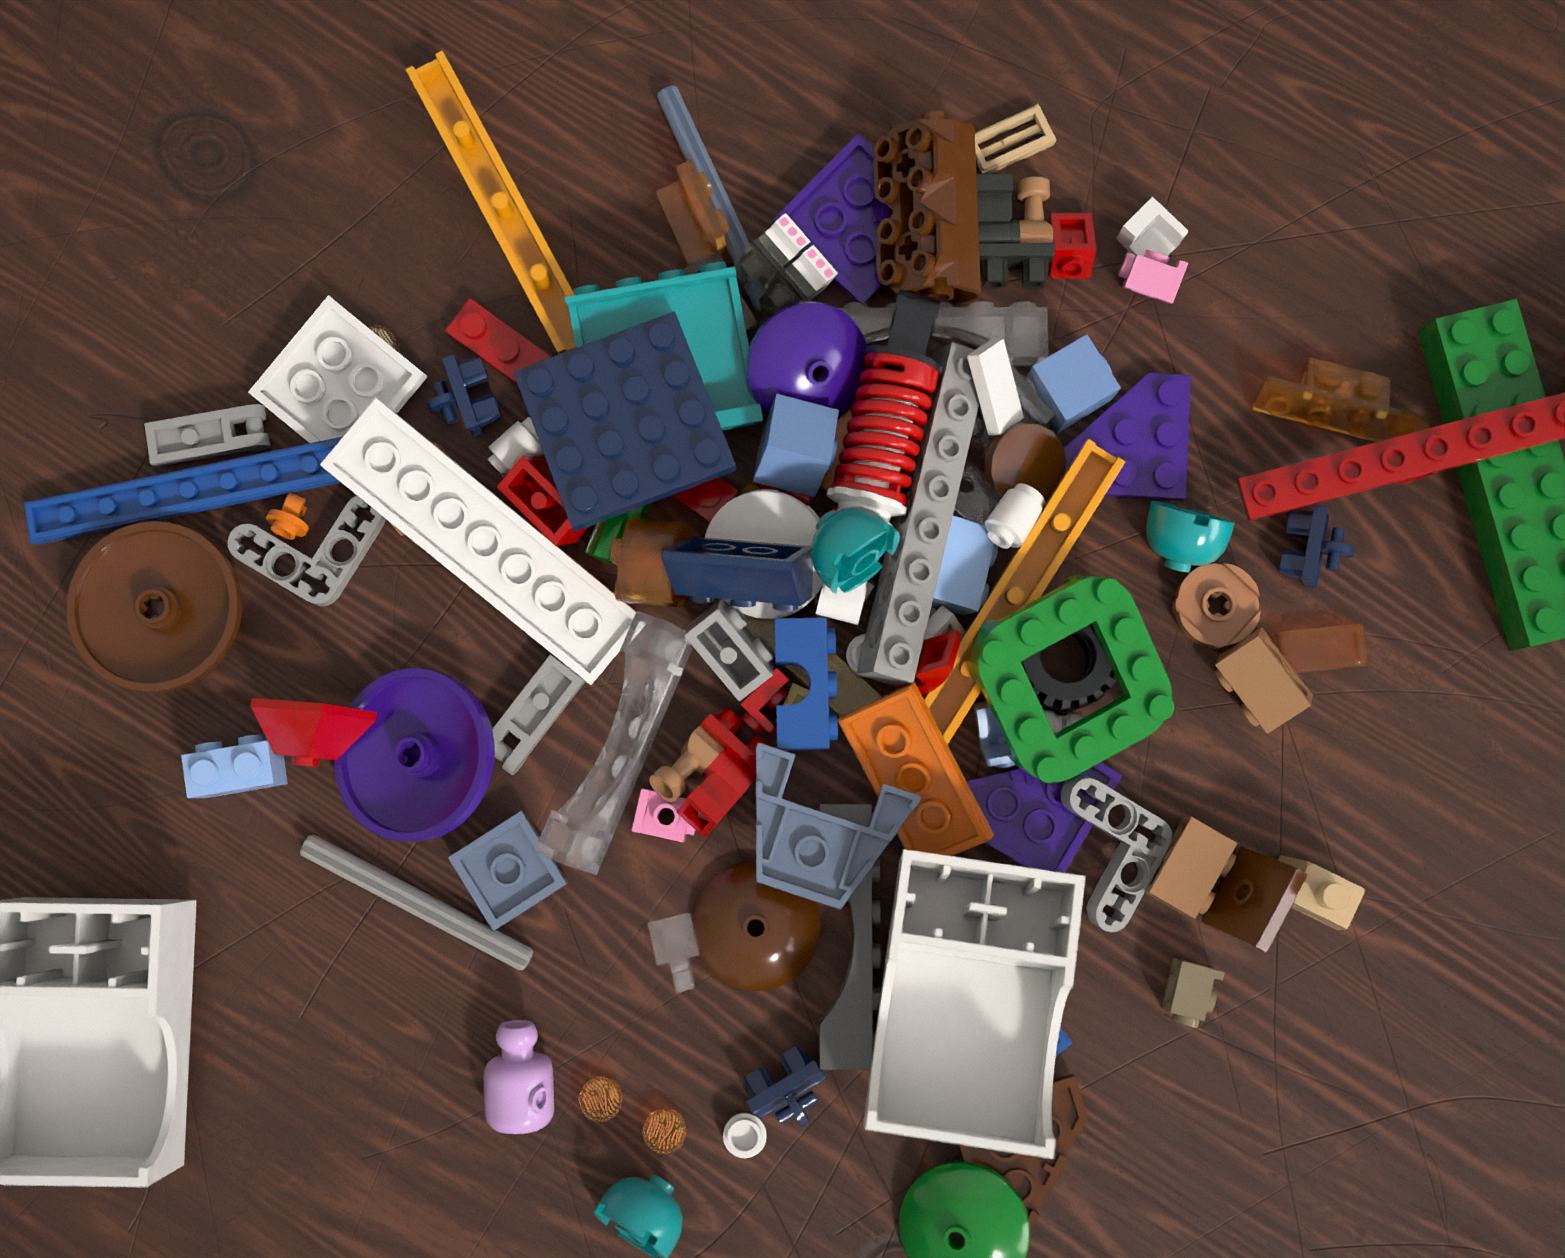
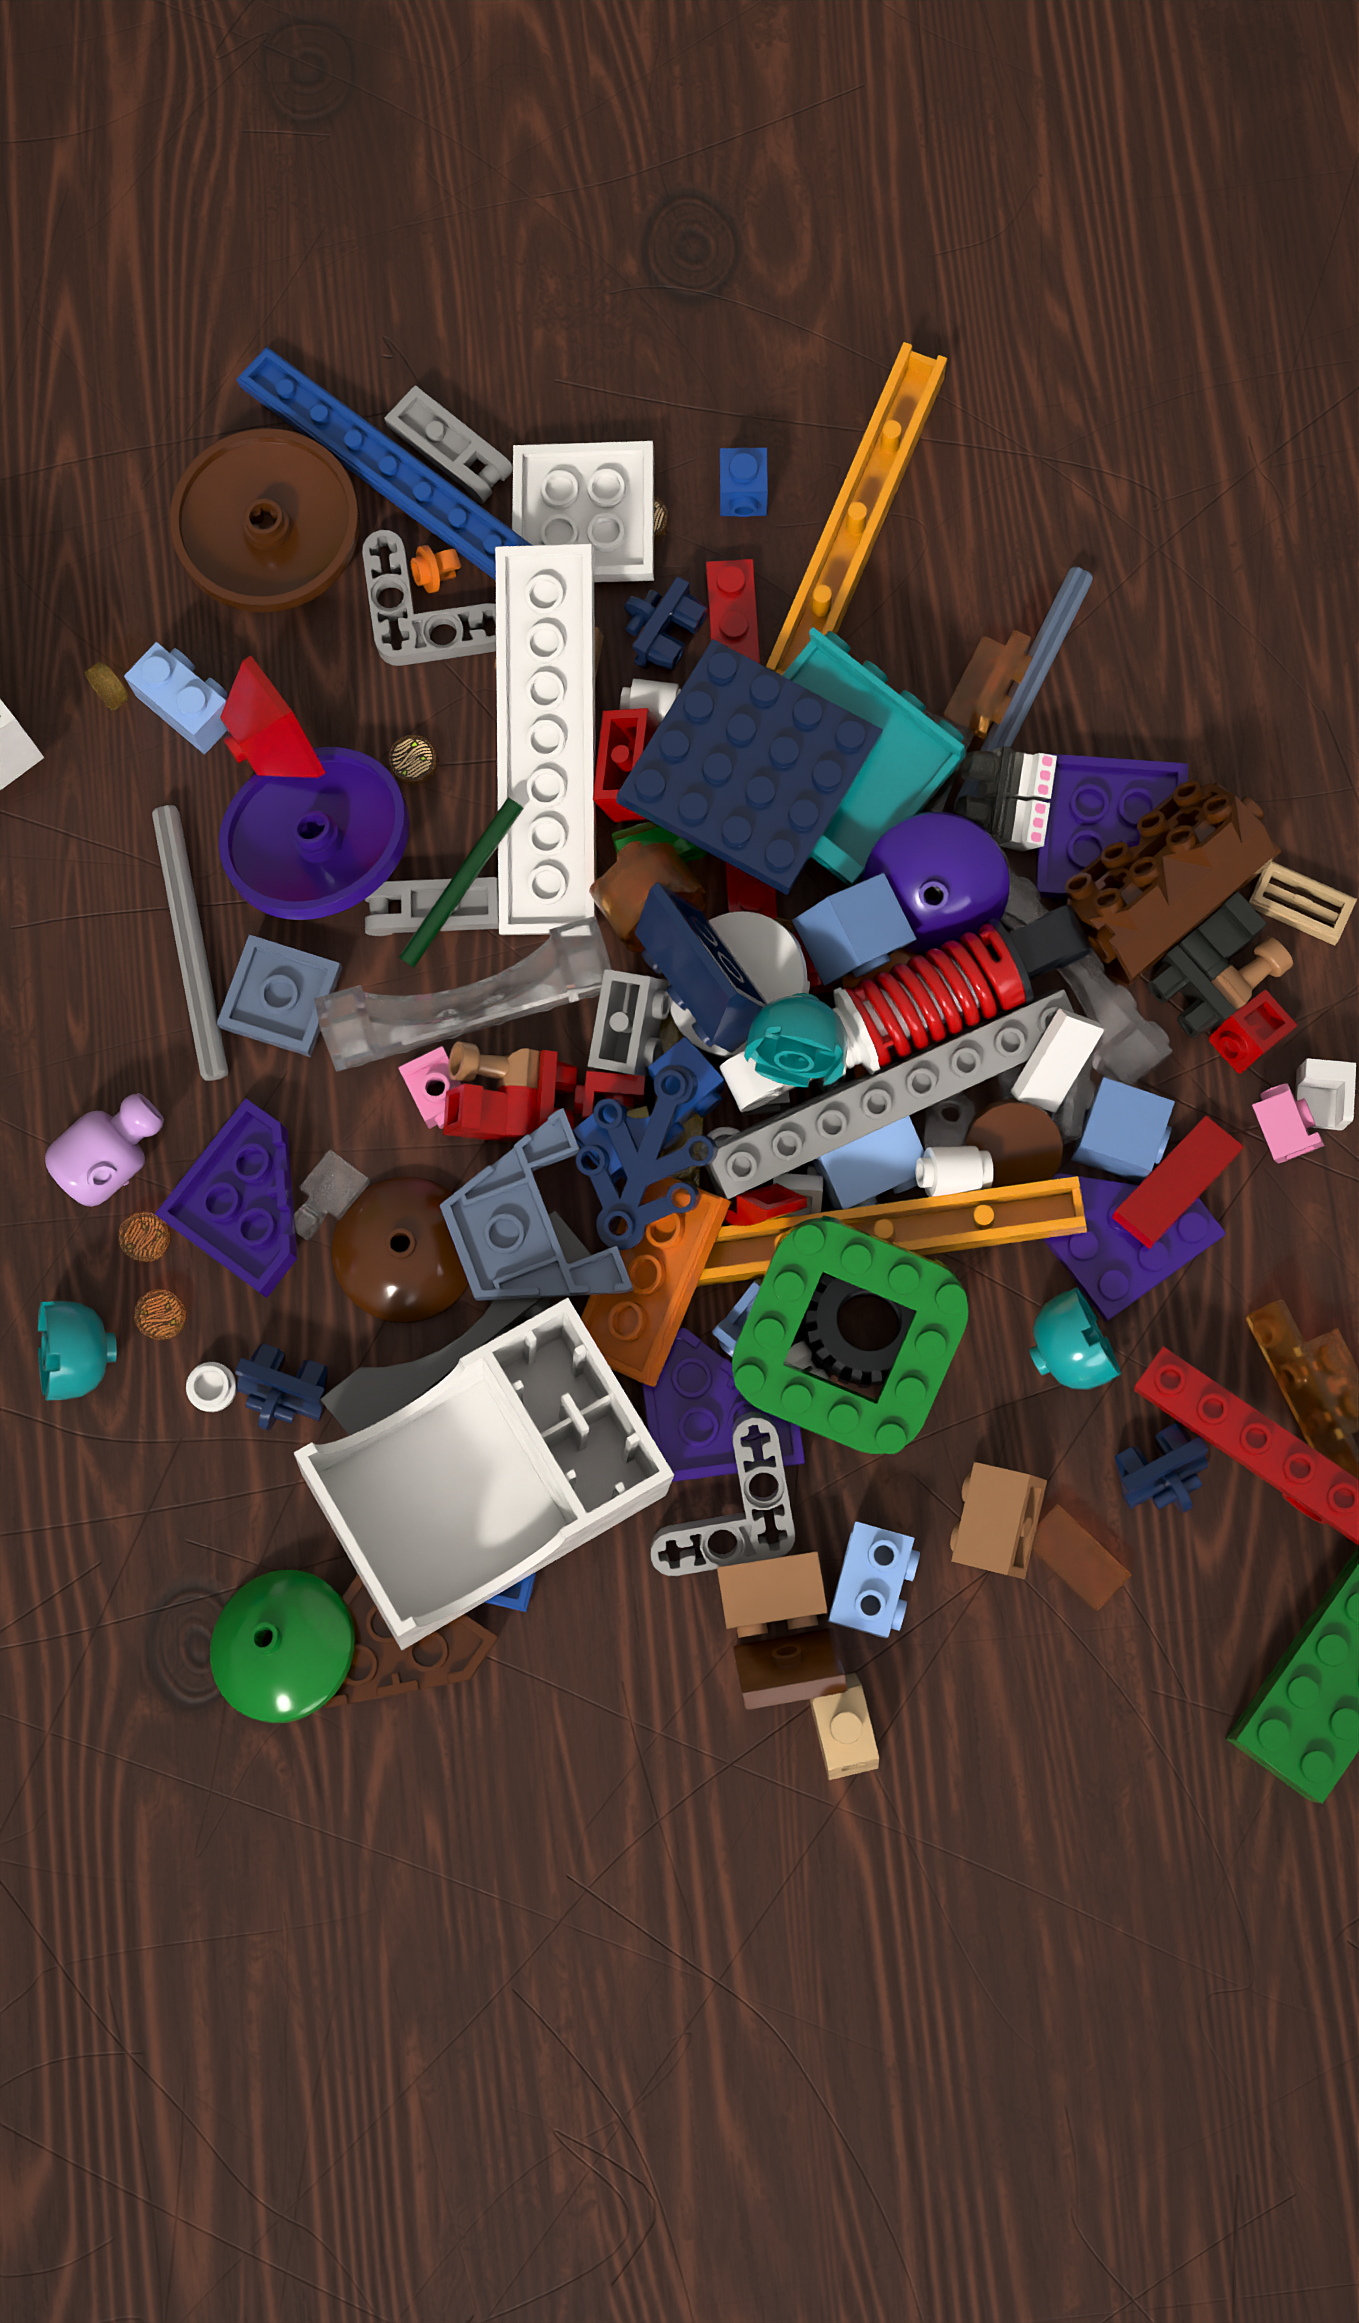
camera: 55 degrees right, 5 degrees down
(180, 813) = (106, 685): none -> clear yellow tile
(410, 259) = (743, 482): none -> blue brick
(415, 643) = (413, 760): none -> tile
(536, 682) = (461, 882): none -> dark green bar
(633, 1014) = (240, 1200): none -> dark purple plate
(843, 721) = (643, 1165): none -> dark blue plant
(1134, 370) = (1177, 1182): none -> red tile
(1190, 992) = (658, 1684): dark tan brick -> none
(1235, 795) = (873, 1580): none -> light blue brick
(1241, 604) = (1055, 1407): nougat plate -> none

